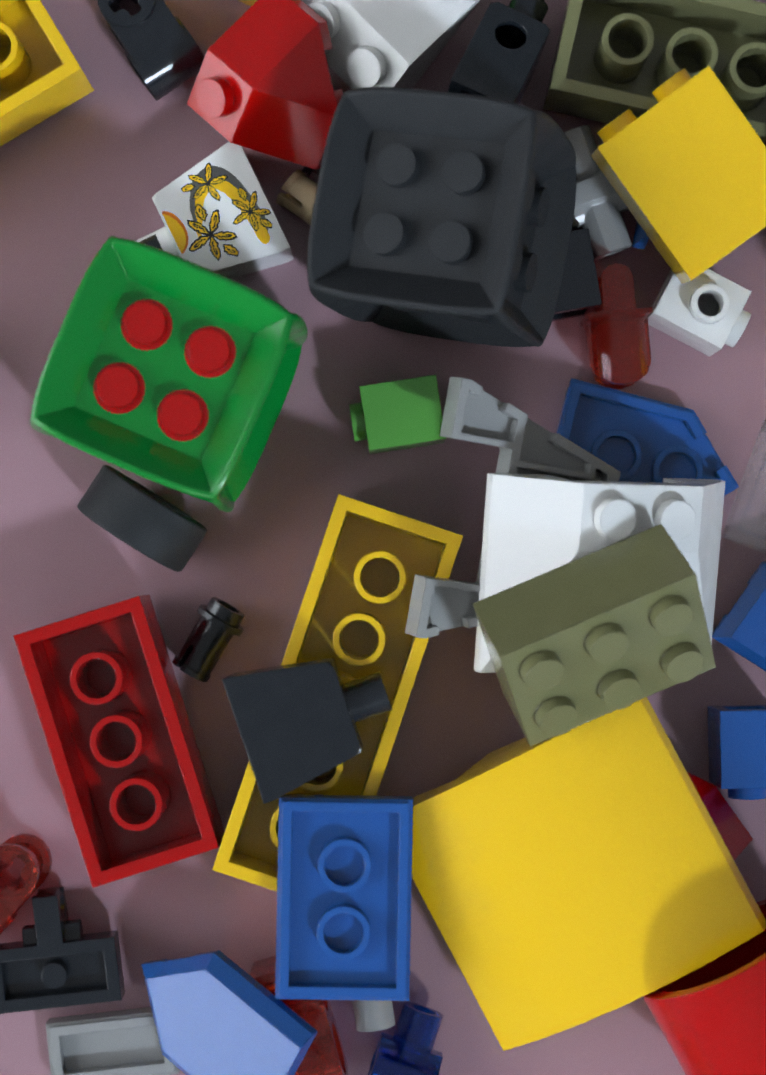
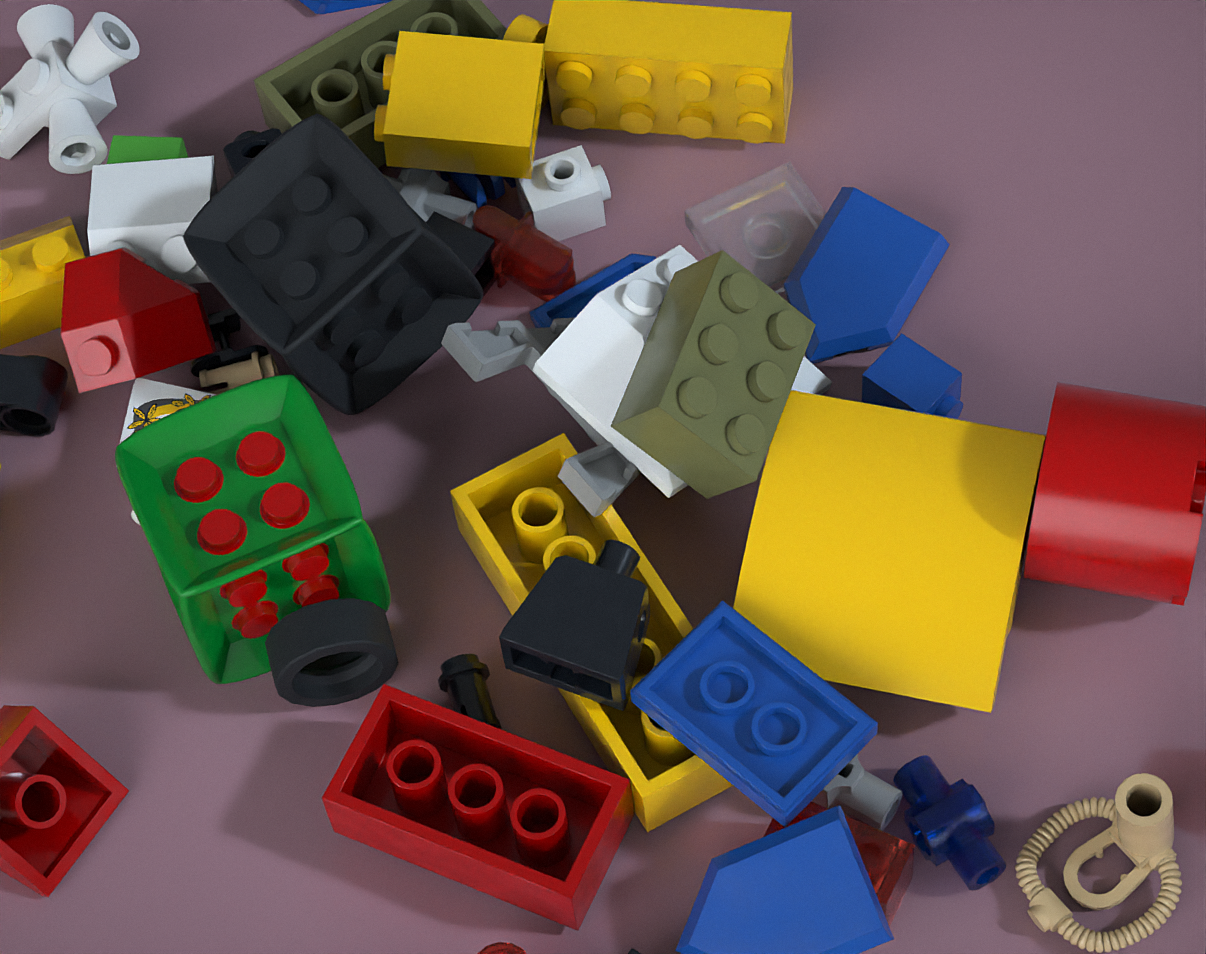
camera: 35 degrees left, 30 degrees down
(398, 415) = (440, 435): bright green brick -> none

